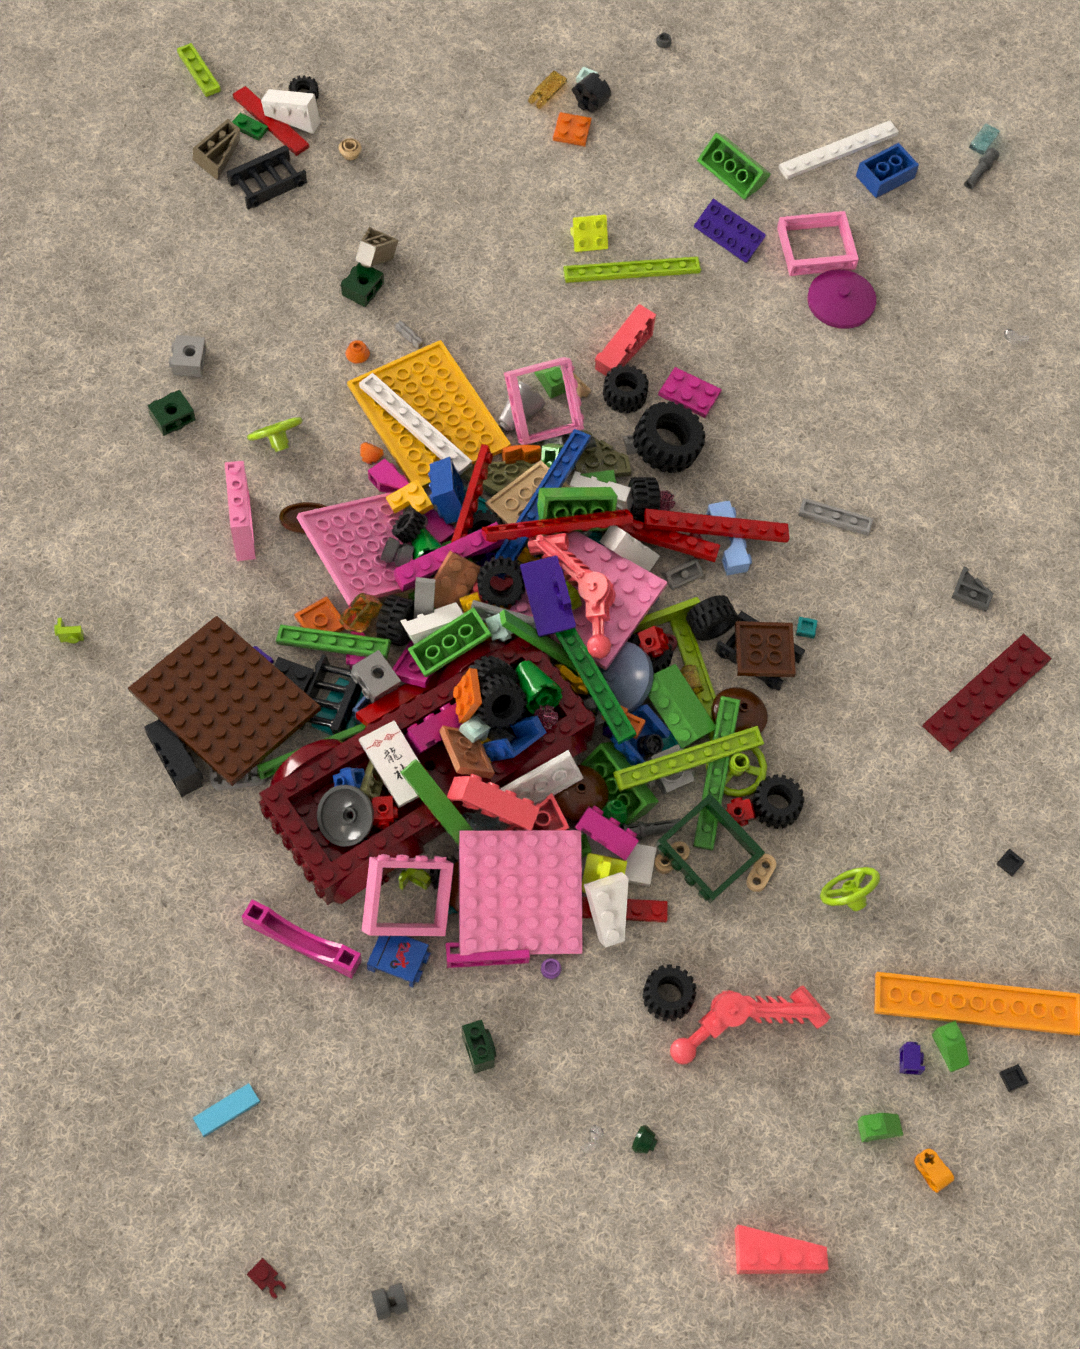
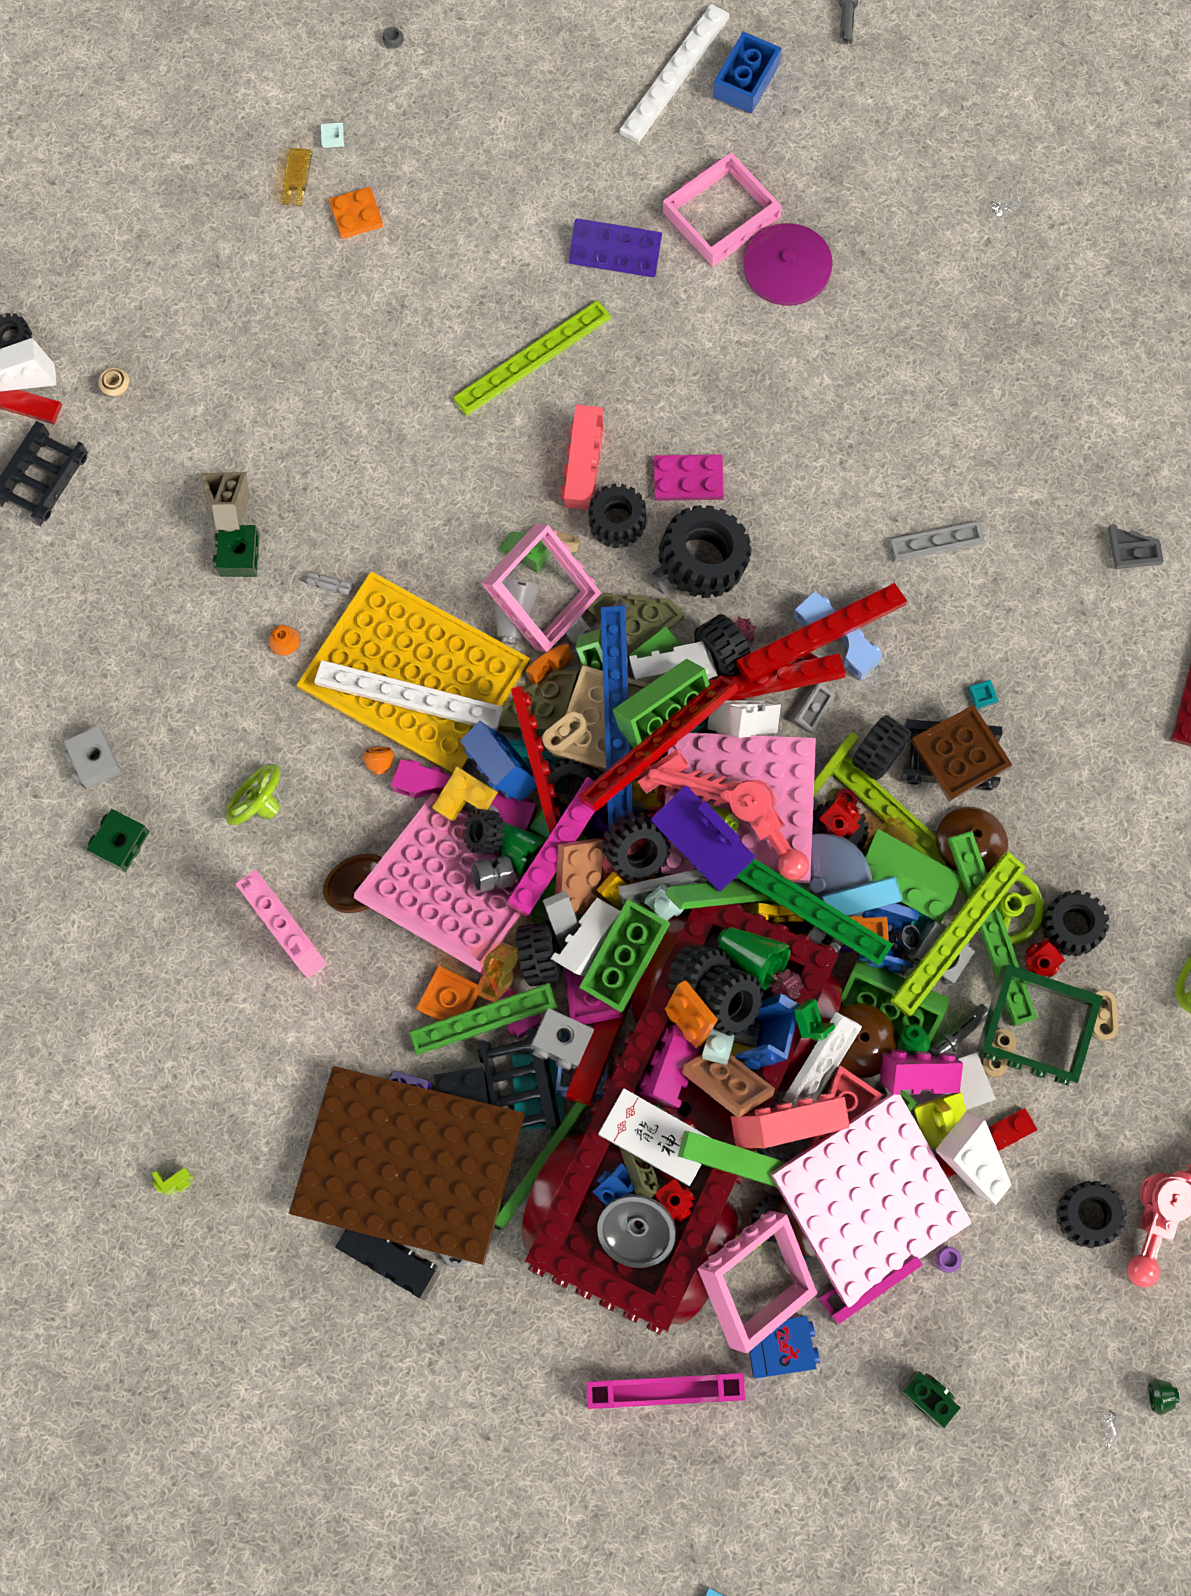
camera: 20 degrees left, 10 degrees up
(501, 492) = (563, 731): none -> tan plate
(546, 744) = (810, 1022): none -> green bracket
(590, 233) = (459, 339): neon yellow bracket -> none
(591, 92) = (353, 154): black brick -> none
(638, 696) = (865, 896): none -> medium azure tile
(733, 166) = (570, 161): bright green slope -> none

